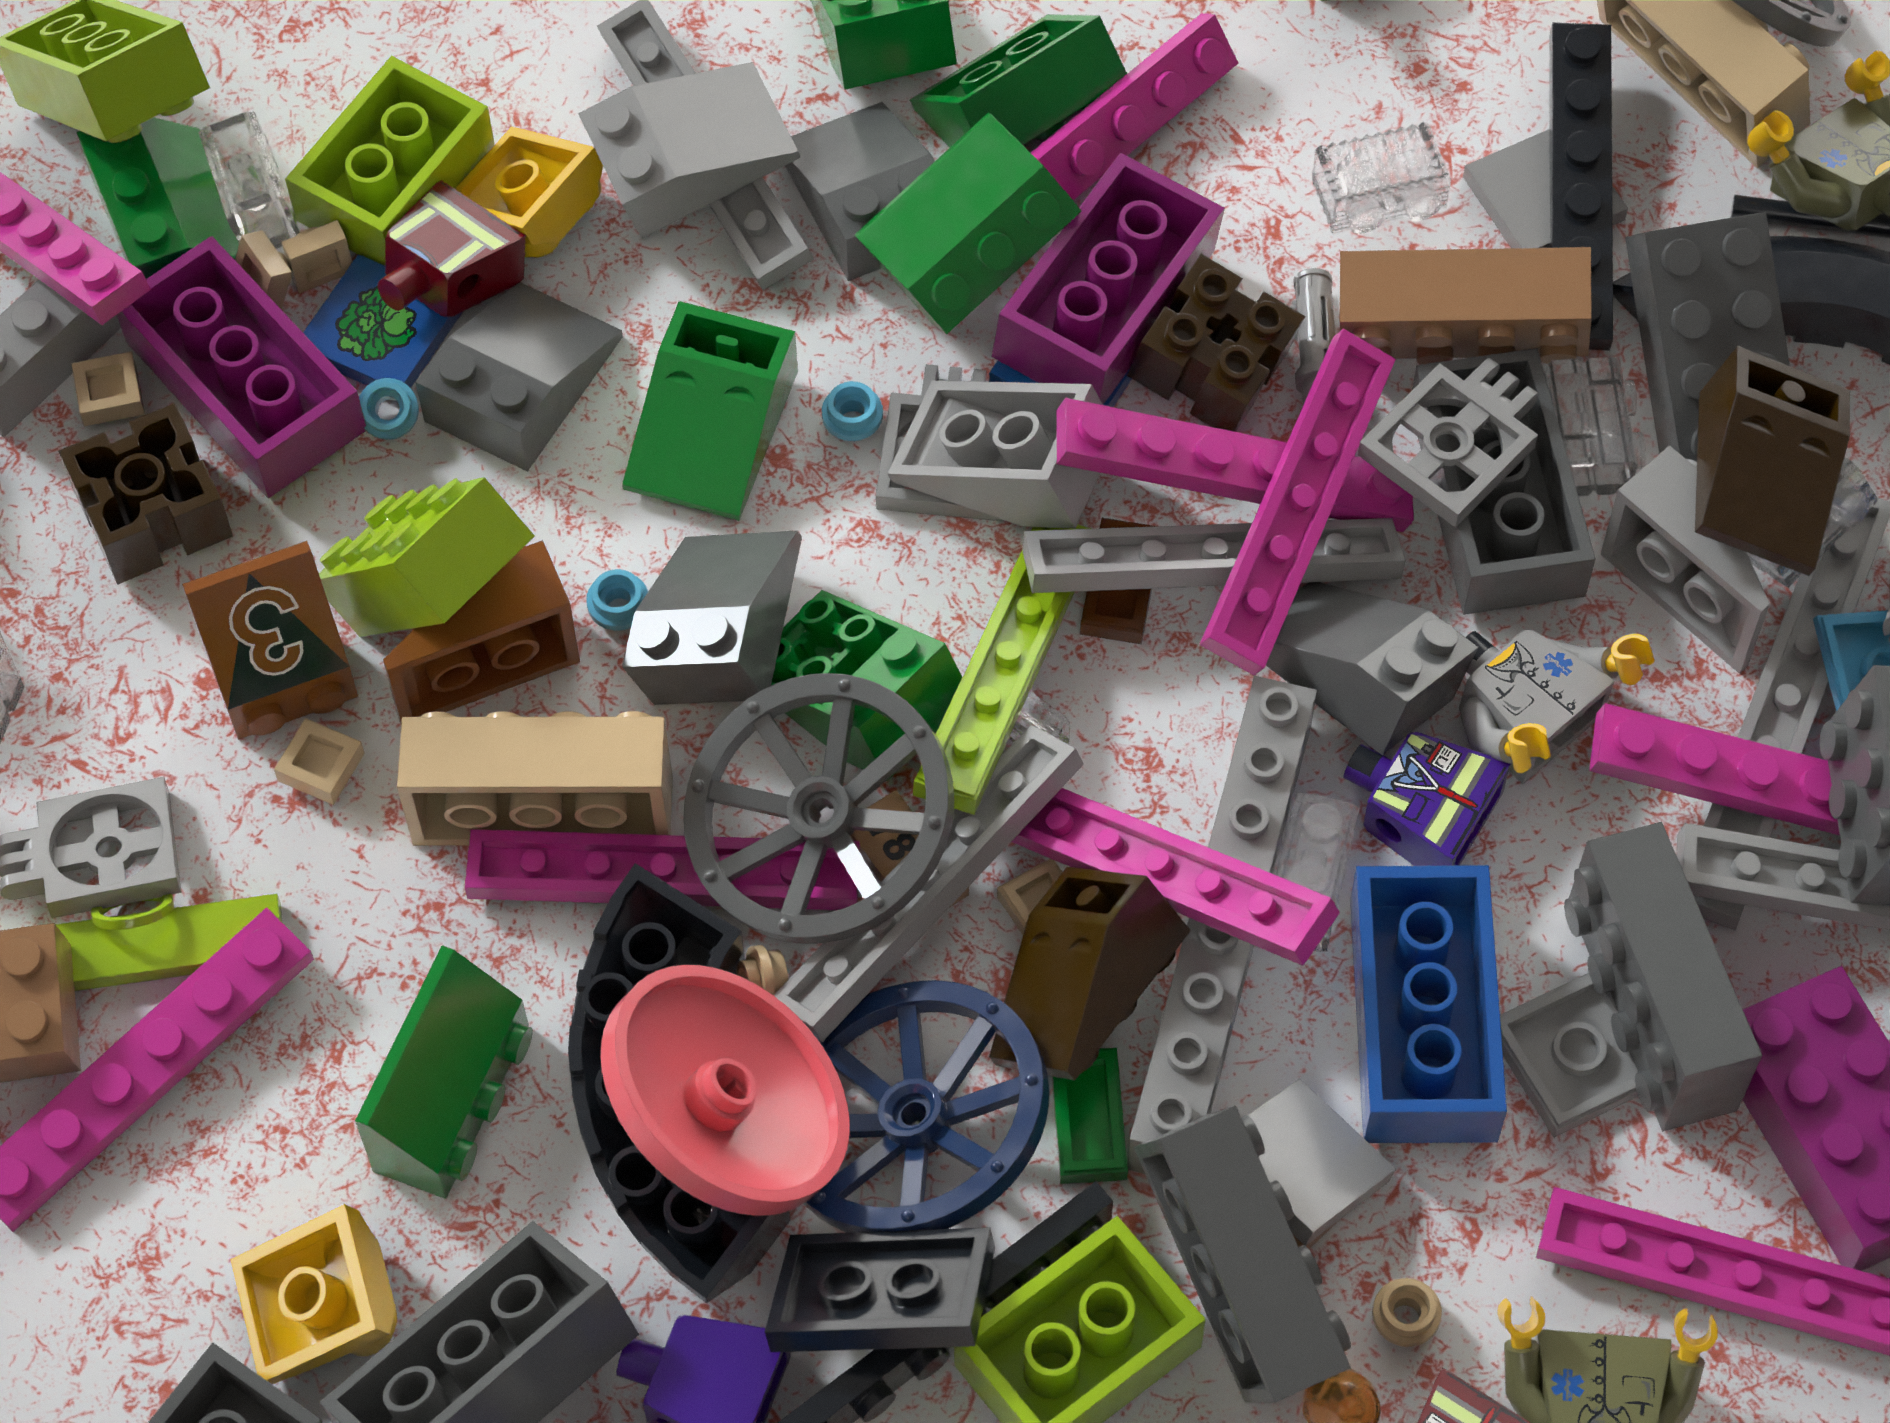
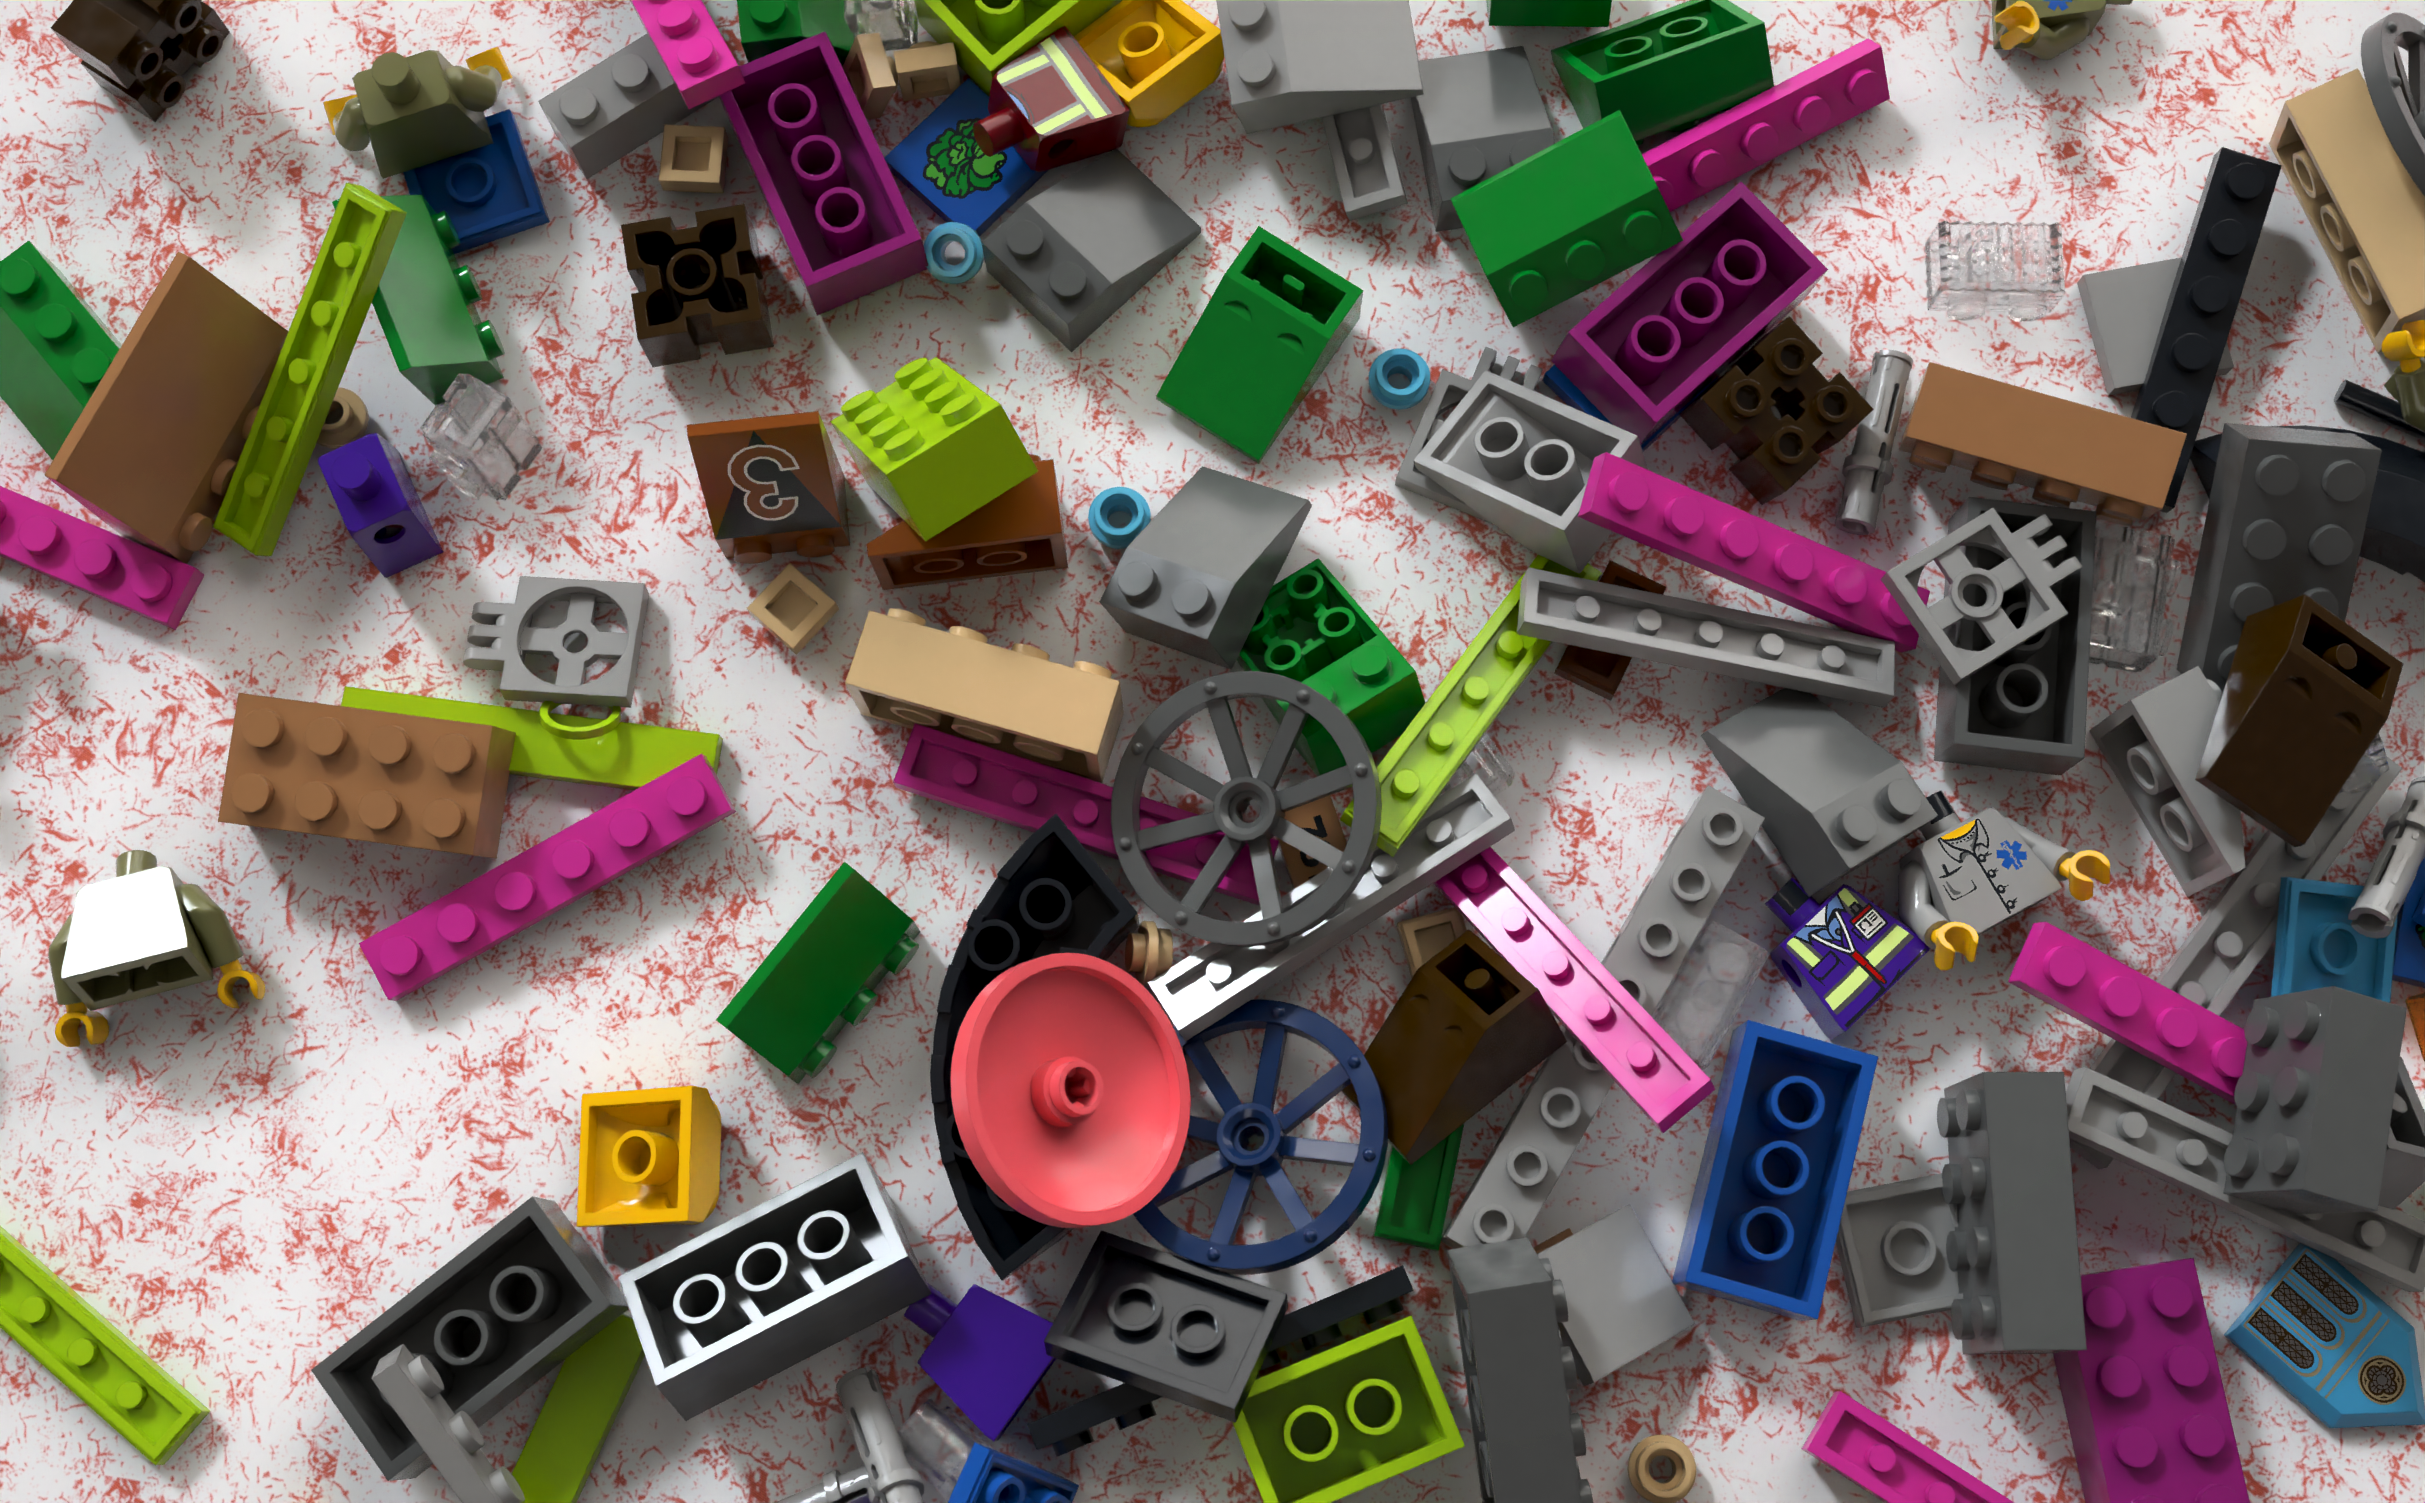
camera: 15 degrees right, 15 degrees up
(1297, 503) = (1806, 616): dark pink plate -> none

